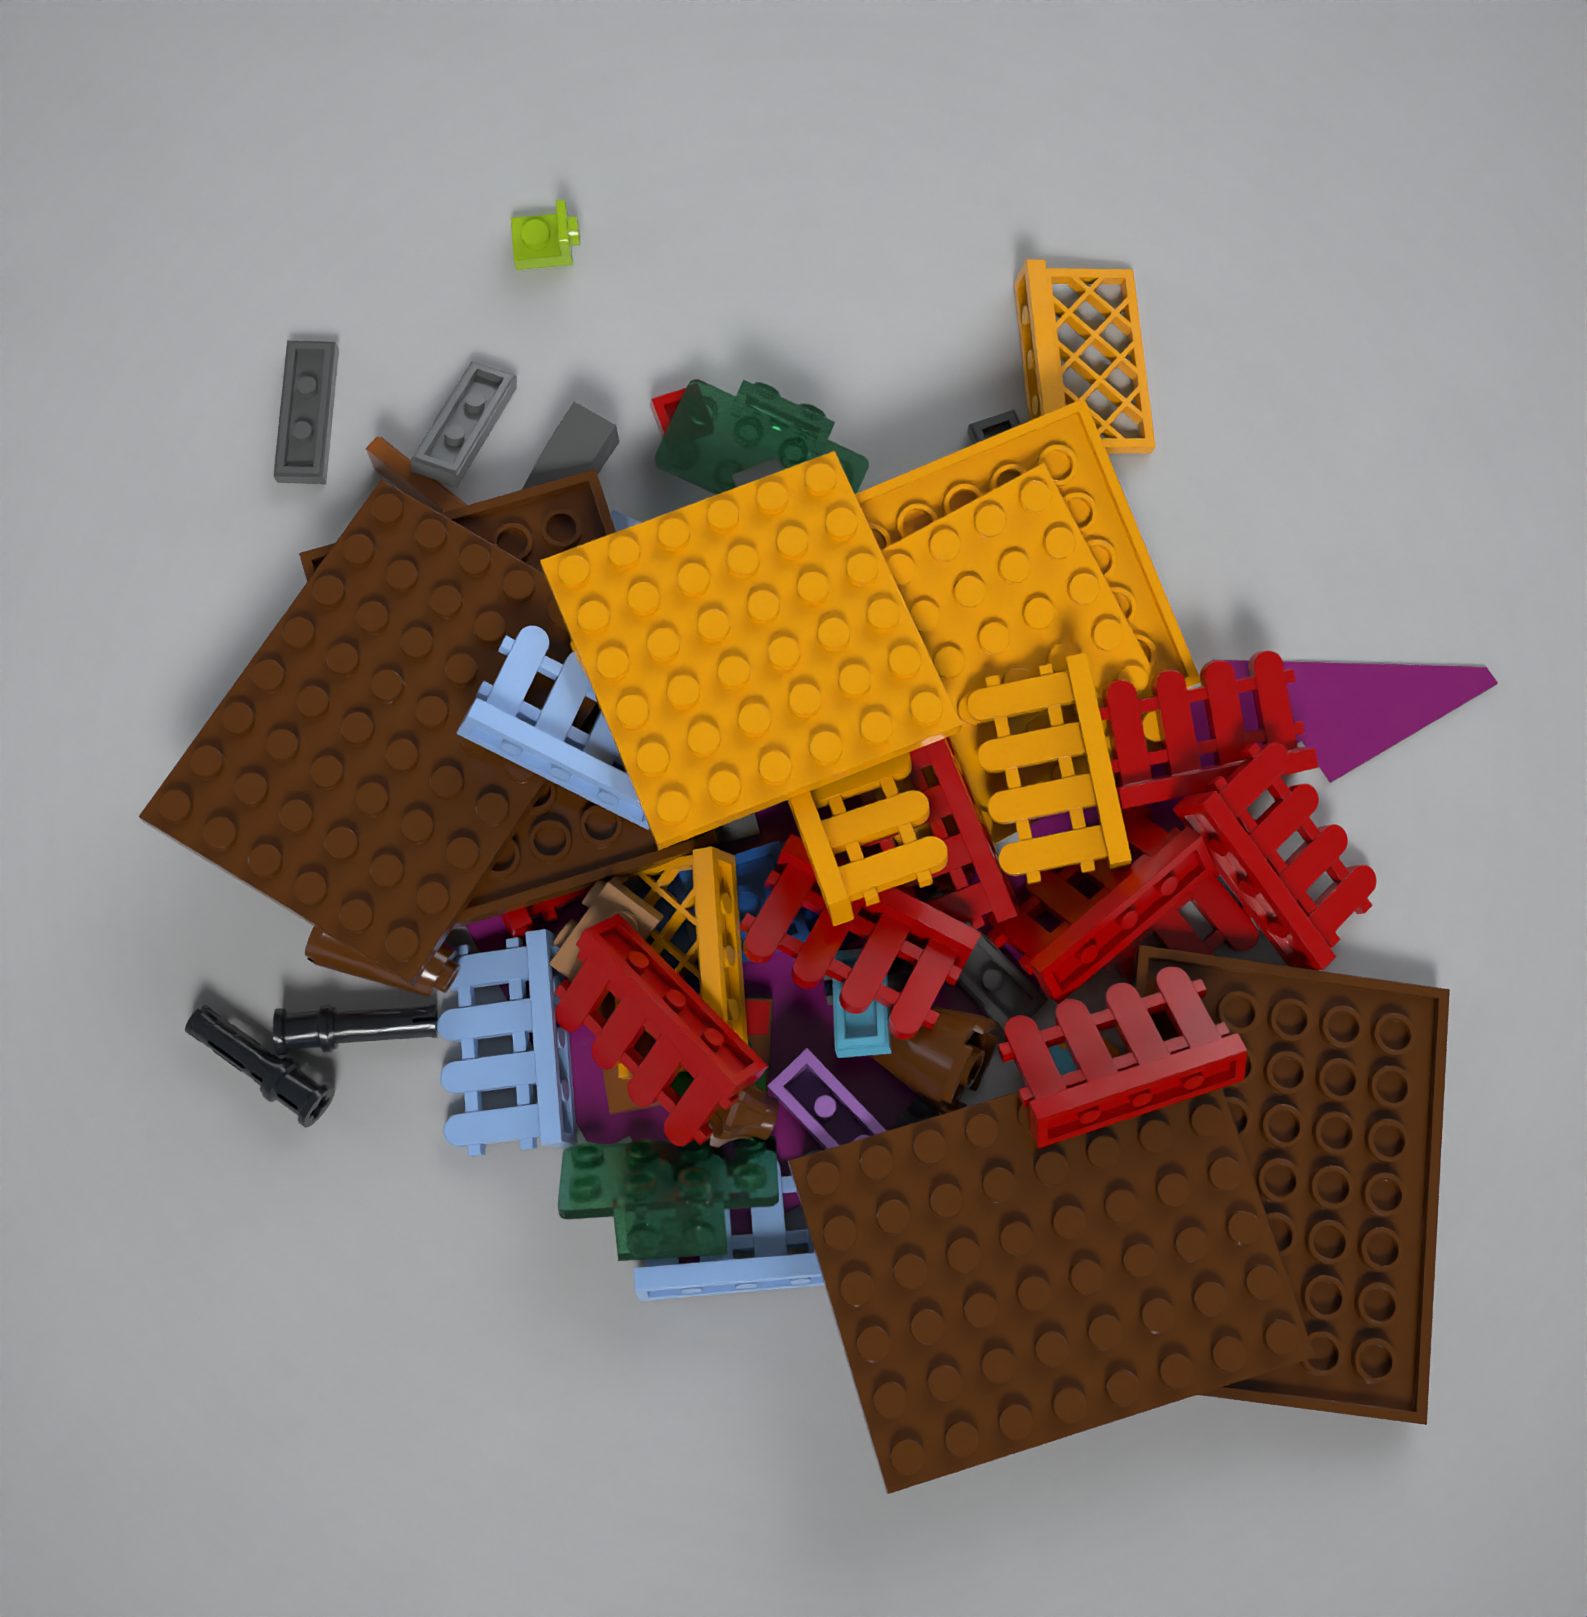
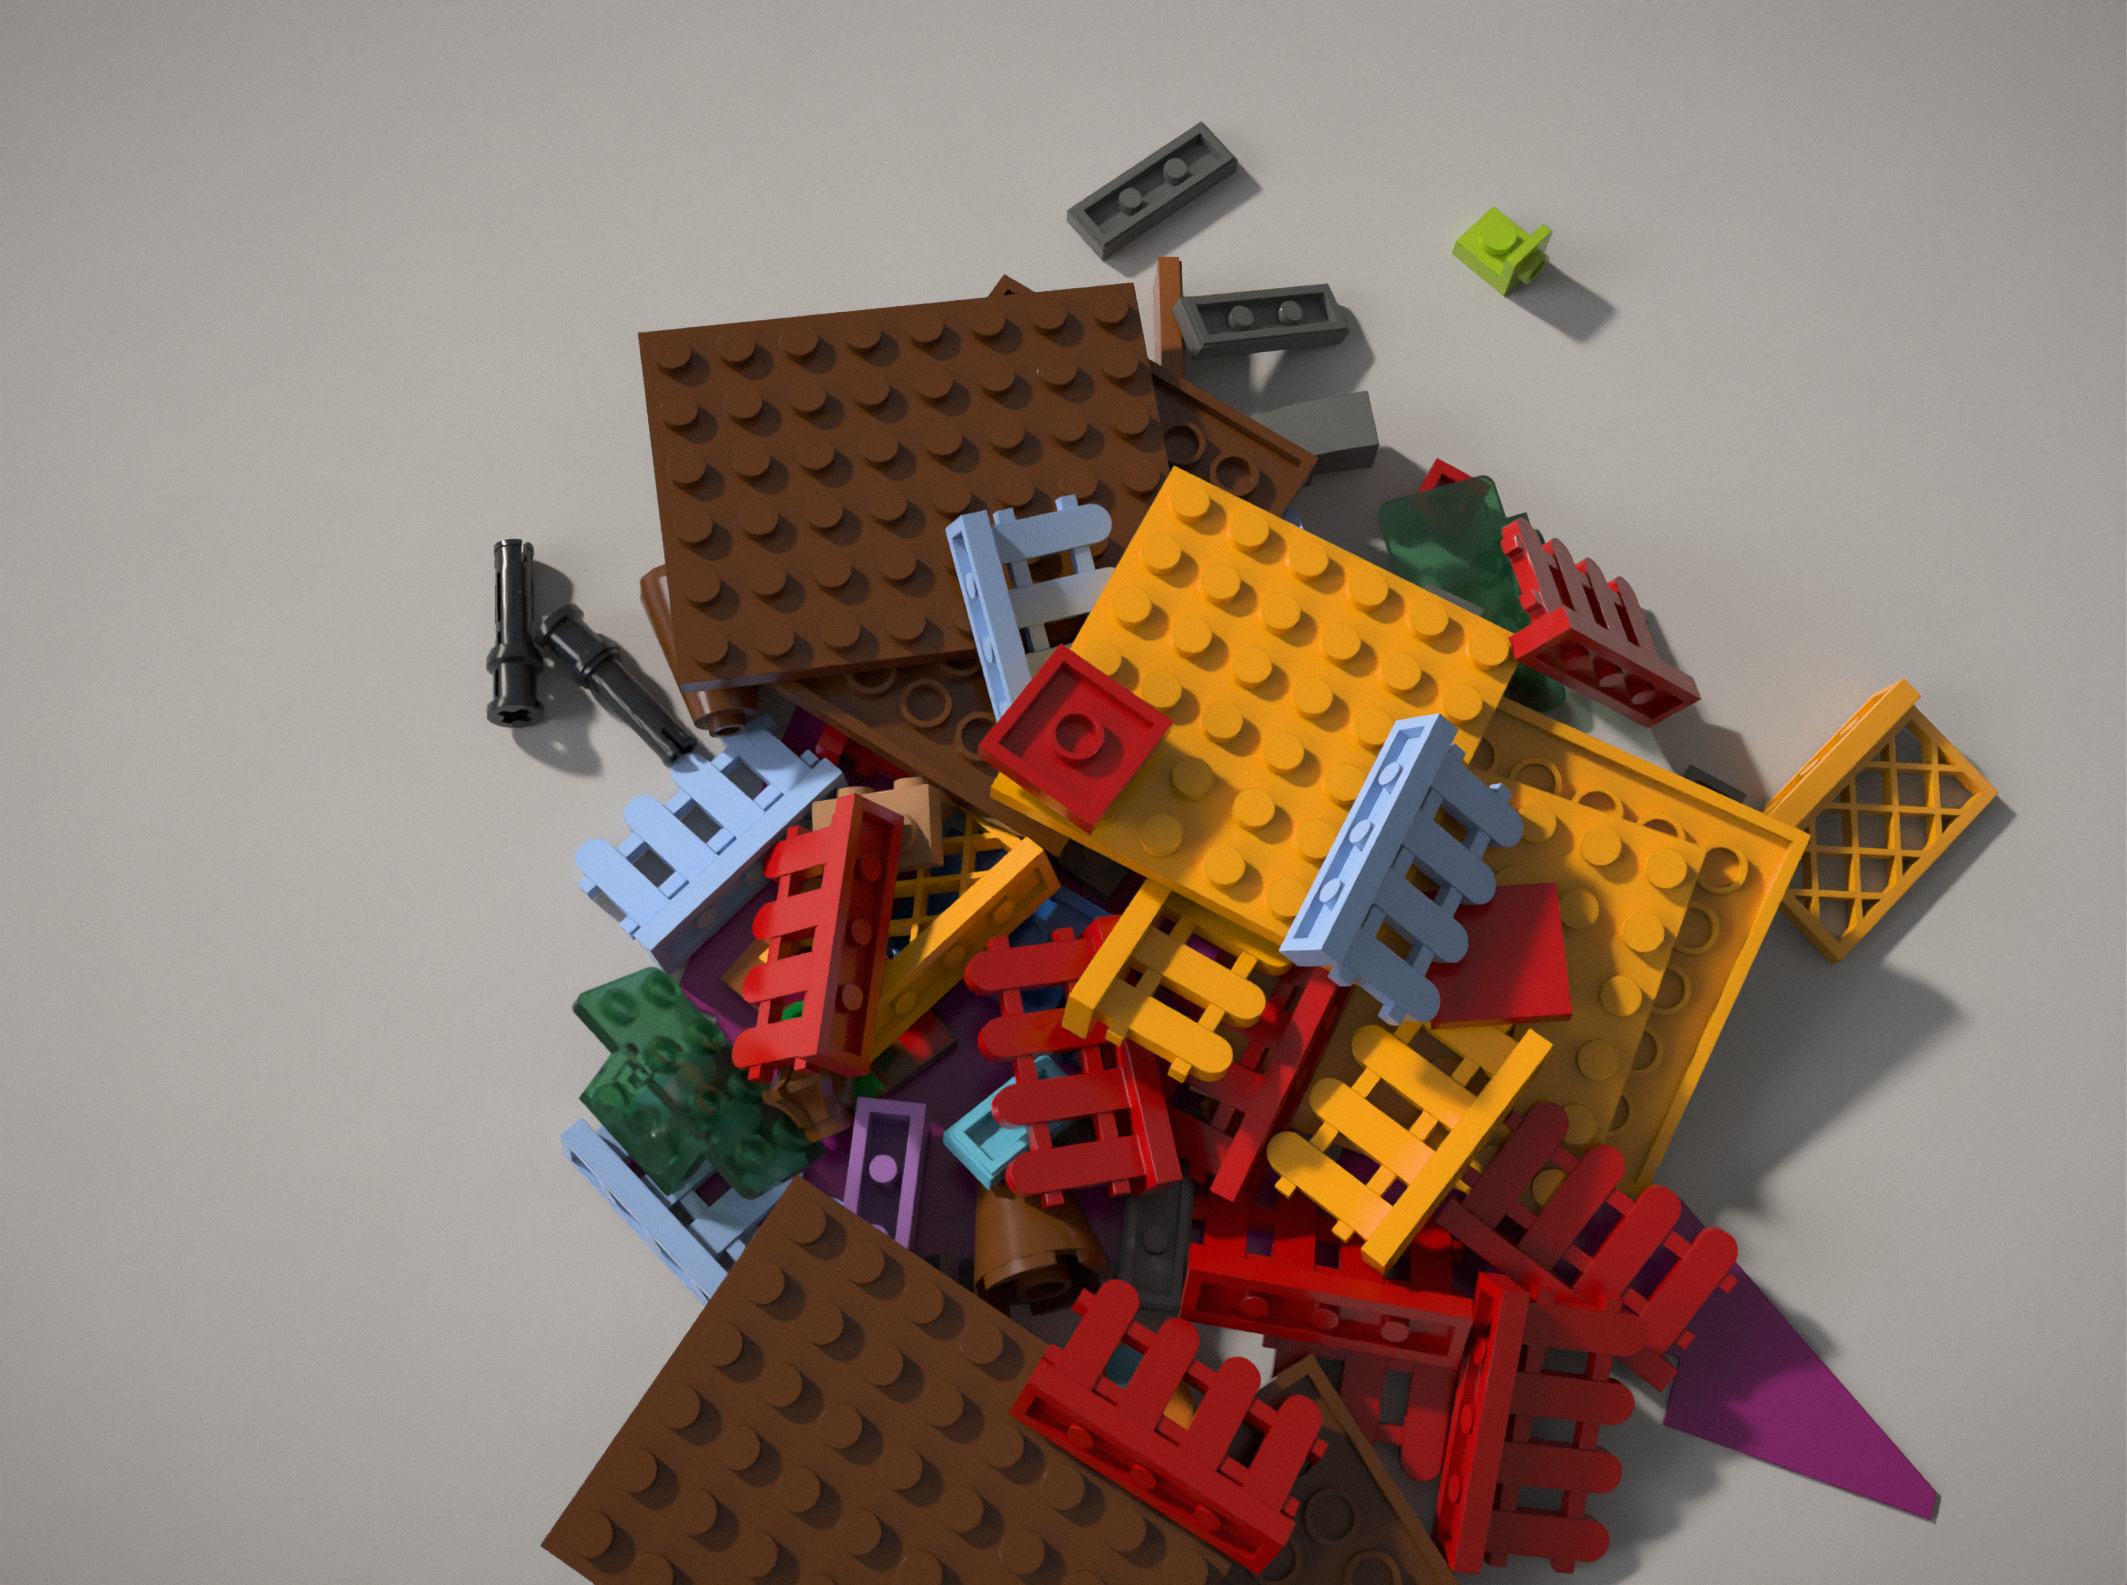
camera: 45 degrees right, 5 degrees down
(676, 767) = (1075, 739): none -> red plate
(847, 408) = (1590, 631): none -> red fence
(891, 648) = (1369, 861): none -> light blue fence
(1003, 639) = (1511, 963): none -> red tile

